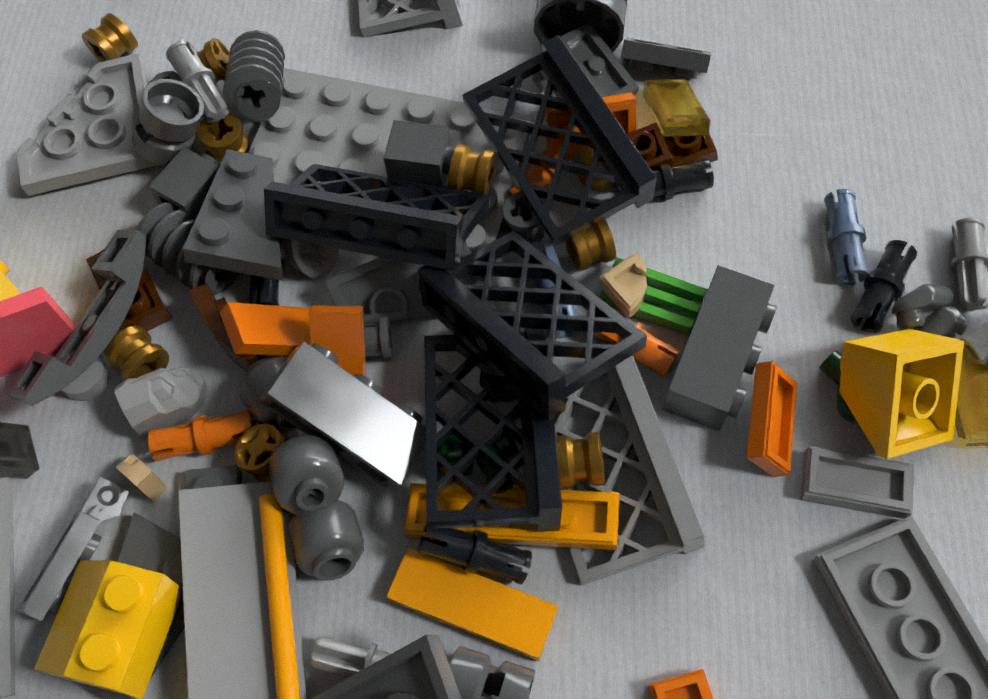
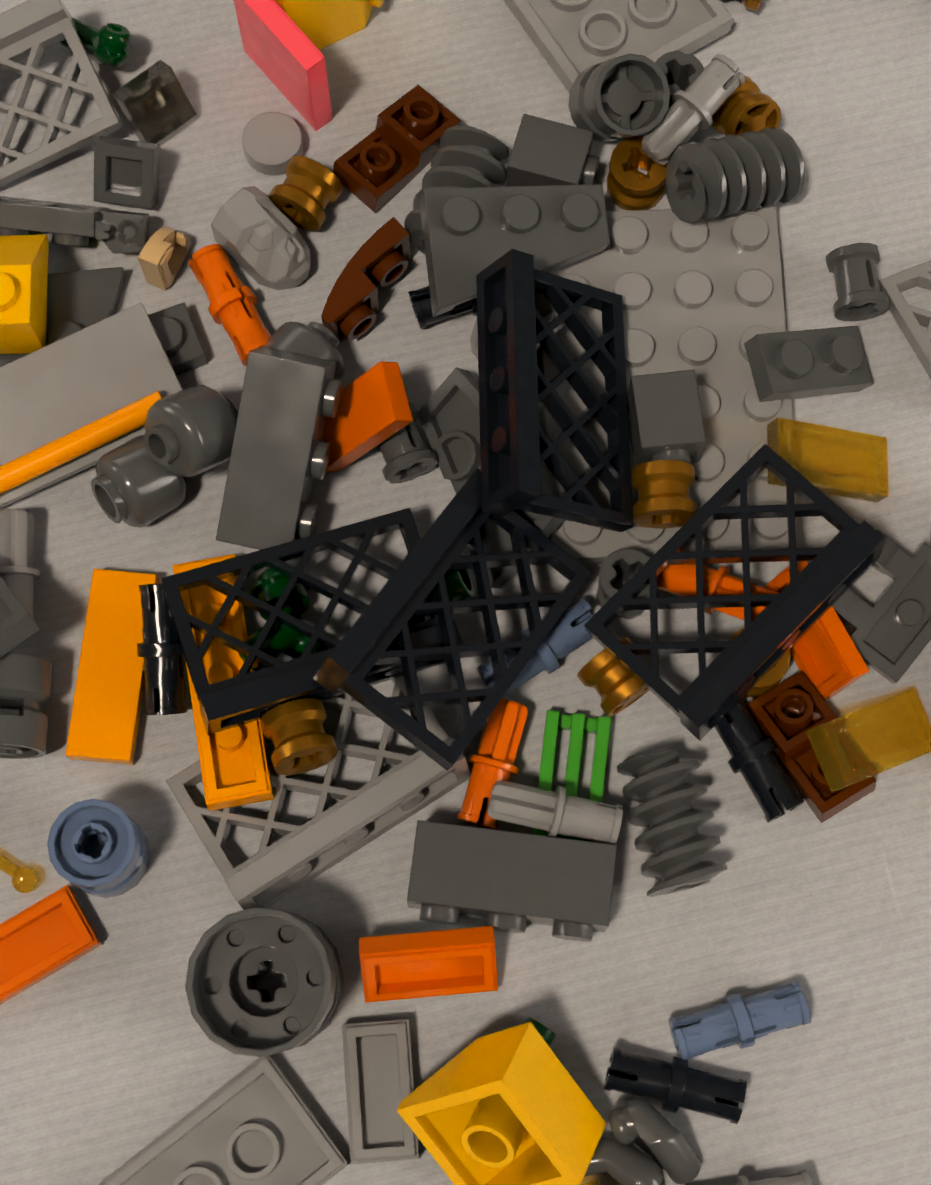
camera: 70 degrees right, 10 degrees up
(53, 487) = (126, 172): none -> dark grey plate
(122, 268) = (245, 112): dark grey slope -> none
(256, 448) = (221, 369): pearl gold wheel -> none
(265, 328) = (370, 323): orange tile -> none
(357, 38) = (857, 282): none -> dark grey bush
(404, 75) = (808, 363): none -> dark grey plate
(471, 74) = (832, 458): none -> clear yellow tile
(626, 284) = (567, 739): tan tile -> none
(631, 641) = (98, 848): none -> sand blue wheel
(682, 300) = (555, 812): none -> light grey axle
(705, 233) = (671, 821): none -> dark grey piece
(795, 513) = (225, 990): none -> dark grey wheel

